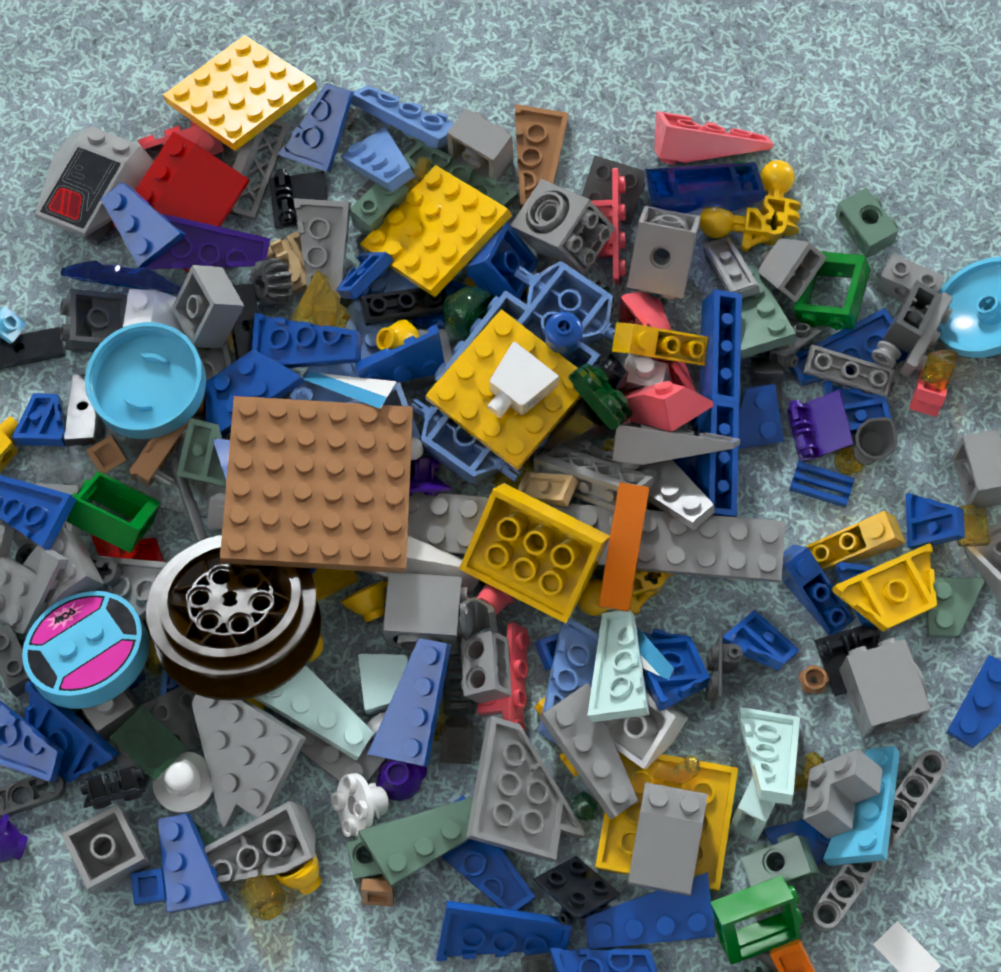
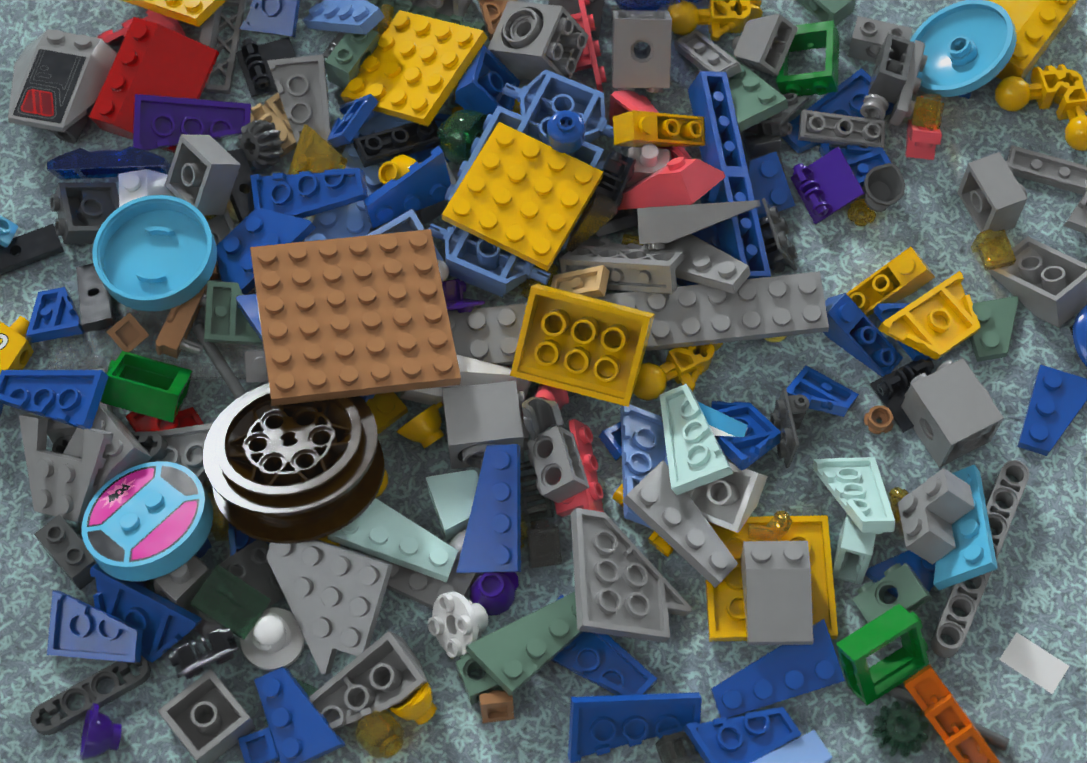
camera: 15 degrees left, 5 degrees down
(140, 225) = (118, 109): wing -> none
(362, 389) = (379, 222): sticker -> none
(520, 382) = (535, 182): white torso -> none
(576, 889) = (697, 661): black hinge -> none
(583, 806) = (684, 582): clear green plate -> none
(600, 396) = (623, 188): dark green plate -> none
(624, 547) = (670, 321): orange slope -> none
(755, 467) = (778, 248): none -> dark grey hinge
(826, 474) = (841, 234): blue tile -> none
(932, 522) = (956, 251): blue wing -> none

